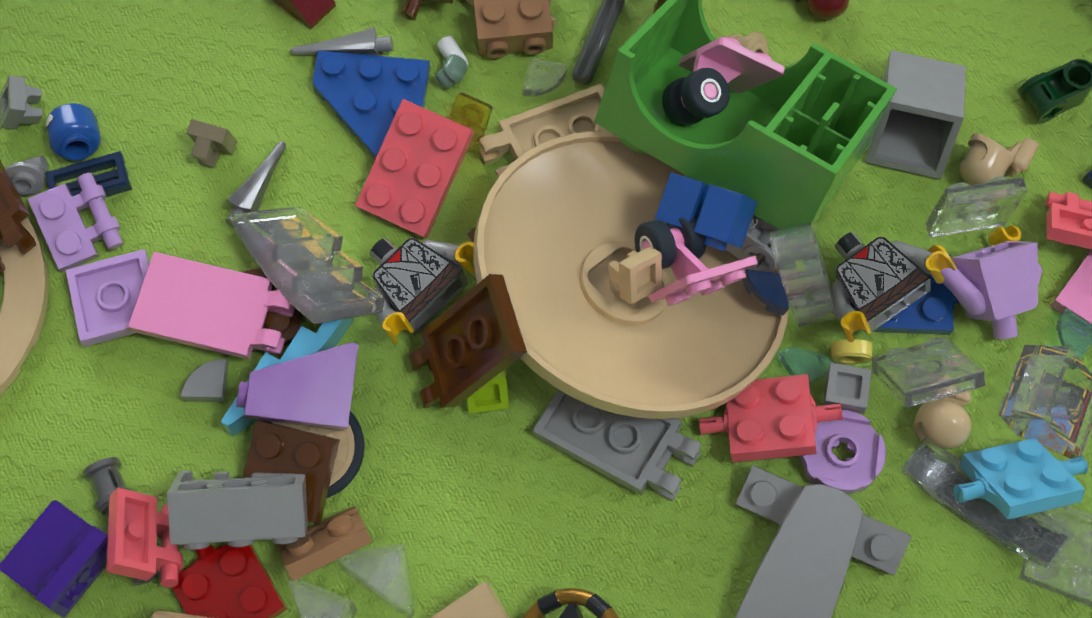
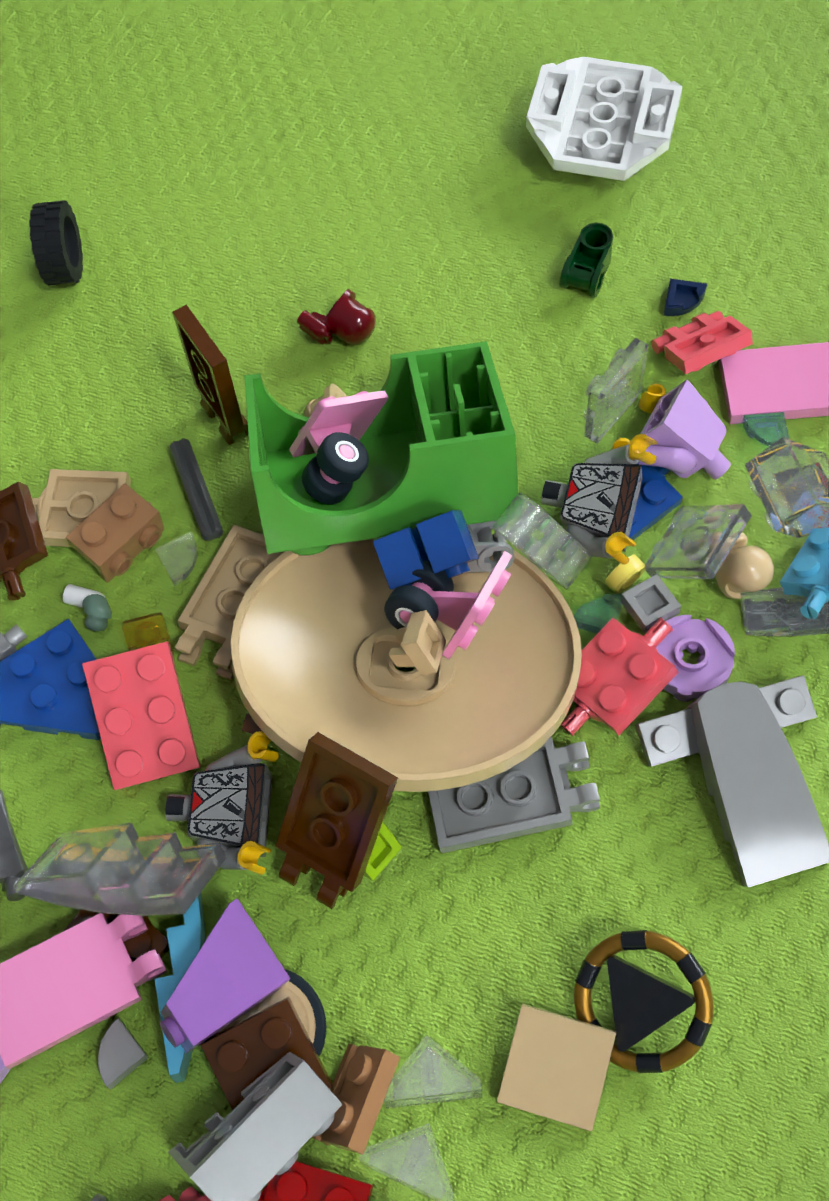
camera: 35 degrees left, 5 degrees down
(767, 289) = (527, 576): dark blue tile -> none
(921, 117) = (519, 348): light grey slope -> none
(990, 159) = (591, 350): tan piece -> none

